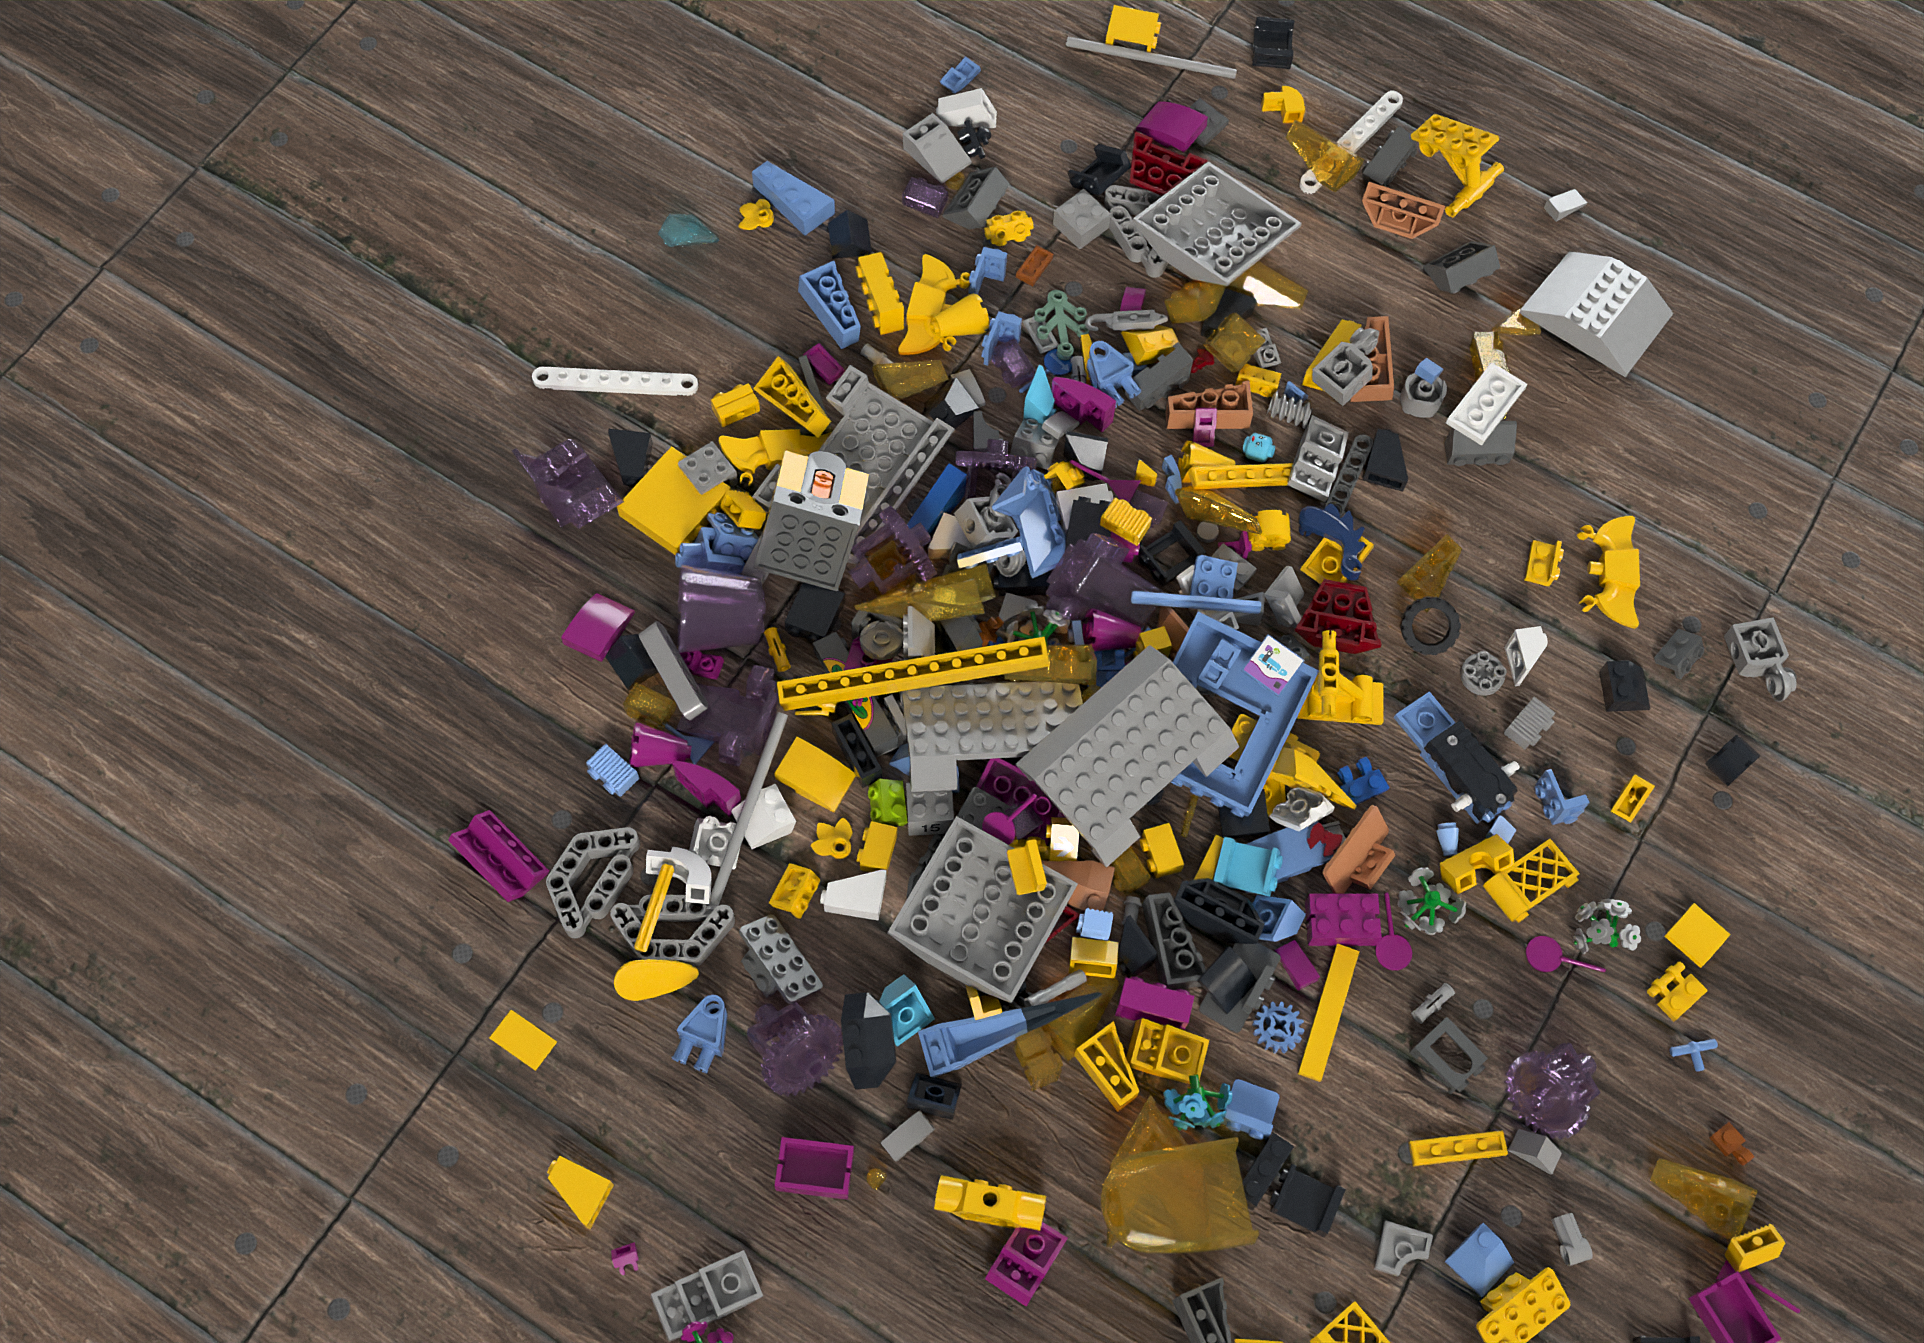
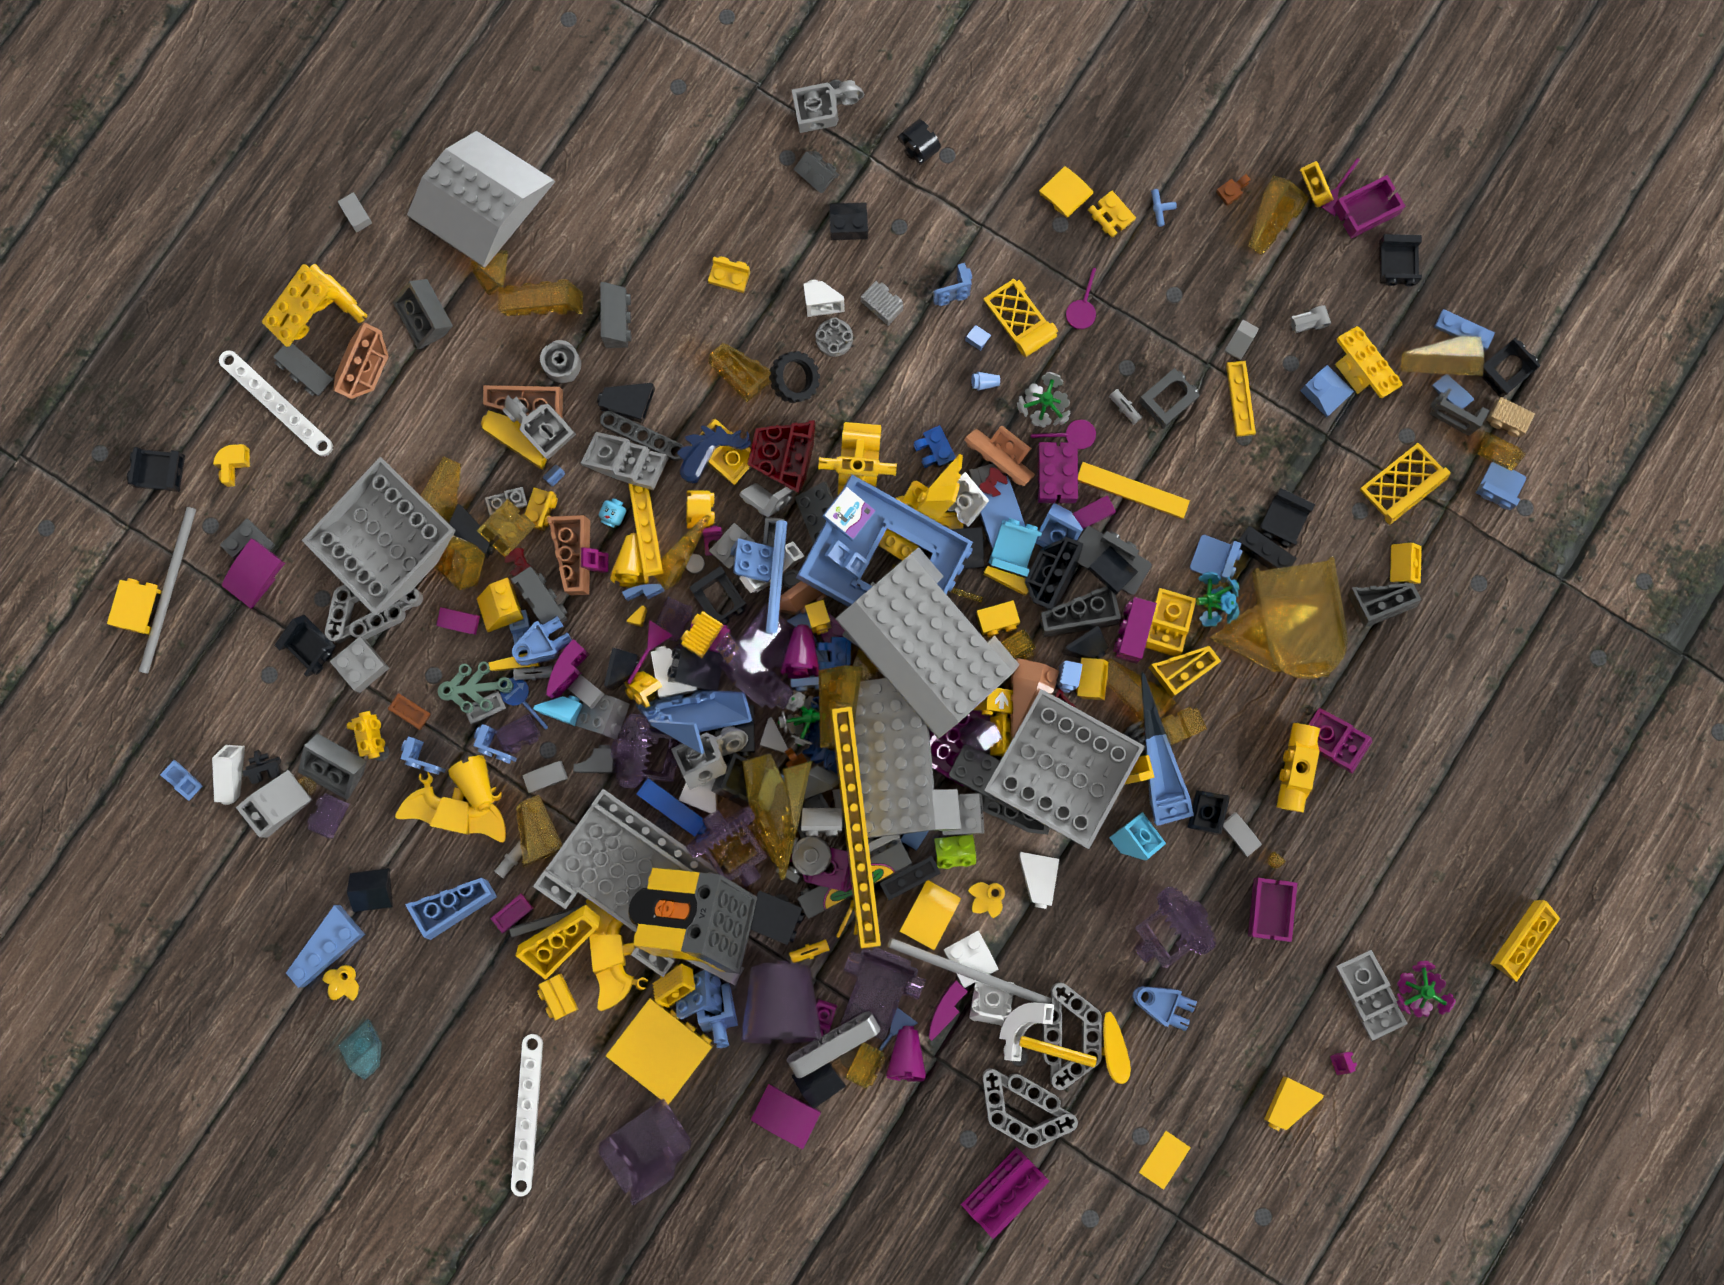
camera: 85 degrees left, 15 degrees up
(612, 770) = (926, 1096): light blue brick -> none
(632, 454) = (610, 1094): black slope -> none
(708, 468) = (630, 1021): light grey bracket -> none
(776, 961) = (1097, 944): dark grey bracket -> none
(795, 890) = (1034, 931): yellow bracket -> none
(867, 1040) = (1167, 867): black wedge -> none
(878, 847) = (997, 859): yellow piece -> none
(881, 293) = (437, 859): yellow wedge -> none
(951, 404) = (564, 793): black slope -> none
(990, 553) = (733, 757): plate -> none
(999, 487) = (666, 742): light grey piece -> none
(1001, 826) = (992, 752): magenta piece -> none
(1027, 868) = (1031, 731): yellow panel -> none
(1066, 984) = (1131, 719): light grey piece -> none
(1127, 320) = (478, 625): light grey plate -> none
(1131, 908) = (1050, 646): light grey pin -> none
(1159, 168) = (306, 587): dark red wedge -> none
(1273, 1019) = (1144, 525): medium blue gear -> none
(1289, 409) = (573, 482): light grey piece -> none
(1326, 158) = (302, 426): clear yellow wedge -> none
(1399, 1246) = (1317, 450): light grey tile -> none
(1428, 370) = (543, 353): medium blue slope -> none
(1459, 760) = (917, 366): piece -> none
(1460, 869) = (999, 348): yellow arch -> none
(1486, 403) = (585, 306): white plate -> none
(1553, 1089) = (1207, 324): clear purple piece -> none
(1605, 930) = (1072, 264): light grey plant -> none
(1616, 570) = (738, 214): yellow torso -> none
(1632, 798) = (950, 228): yellow slope -> none

